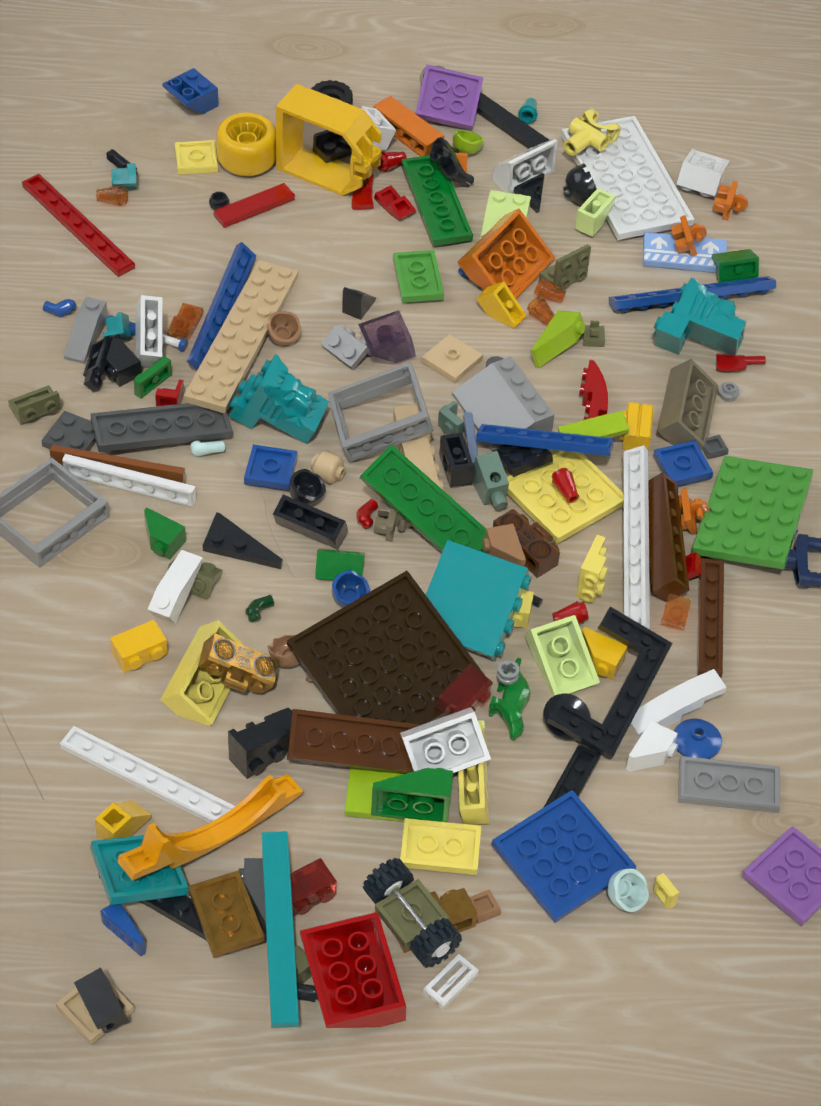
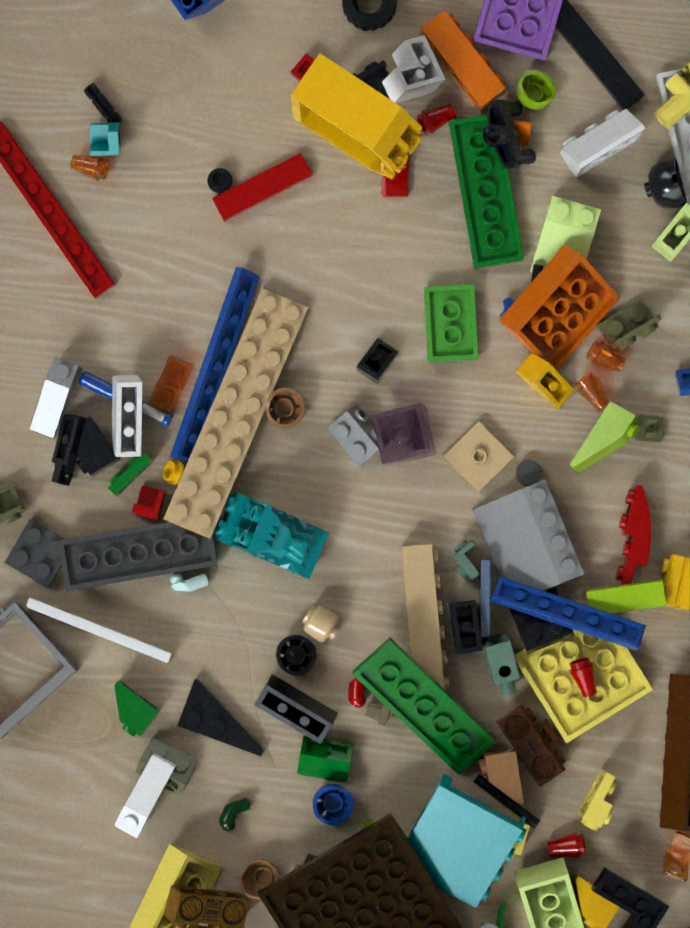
camera: 10 degrees right, 35 degrees up
(61, 308) = (26, 354): blue arm -> none
(118, 325) = (92, 399): teal panel -> none
(138, 646) = (104, 862): yellow brick -> none
(155, 469) = (87, 608): dark orange tile -> none
(188, 374) = (173, 471): none -> yellow plate
(196, 157) = (195, 96): light yellow tile -> none
(246, 144) = (251, 76): yellow wheel -> none
(270, 467) = (257, 617): blue plate -> none
(384, 436) = (341, 565): light grey window -> none
(395, 205) = (434, 193): red slope -> none
(528, 111) = (619, 33): teal cone -> none
(533, 188) = (605, 178): black tile -> none
(636, 536) = (651, 759): white plate -> none

